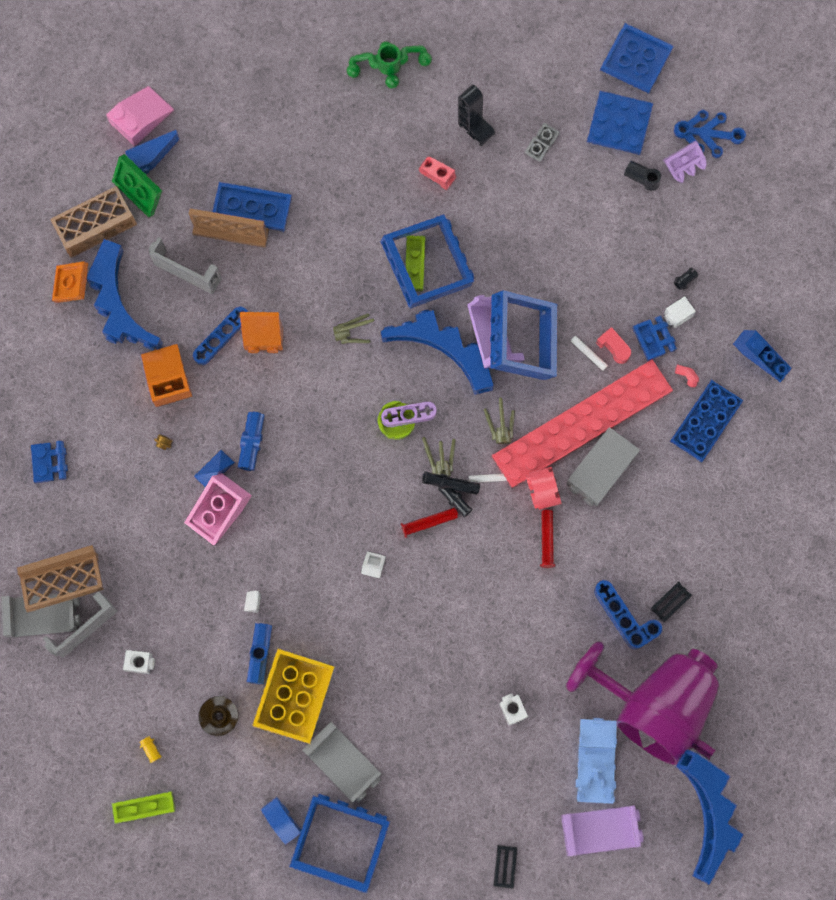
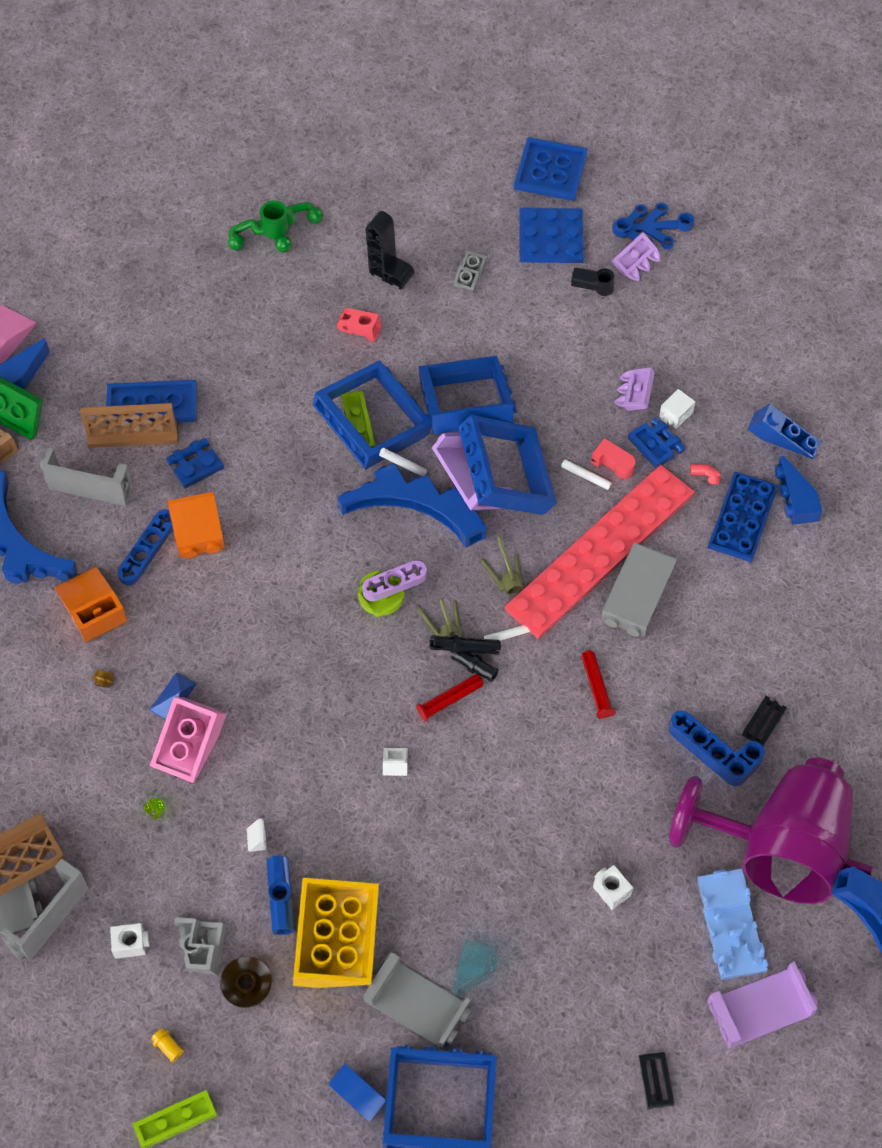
camera: 15 degrees left, 15 degrees down
(181, 558) = (155, 805): none -> clear neon green hinge
(189, 684) = (199, 954): none -> light grey slope
(250, 441) = (211, 653): blue piece -> none
(275, 274) = (197, 468): none -> blue plate
(342, 331) = (292, 510): olive plant -> none
(392, 746) = (474, 966): none -> clear light blue slope
(442, 311) = (403, 462): none -> white piece
(508, 236) = (461, 372): none -> blue window
(544, 488) = (577, 625): coral brick -> none
(651, 286) = (637, 389): none -> lavender plate
(682, 281) = (669, 378): black pin -> none
(758, 416) = (801, 497): none -> blue slope

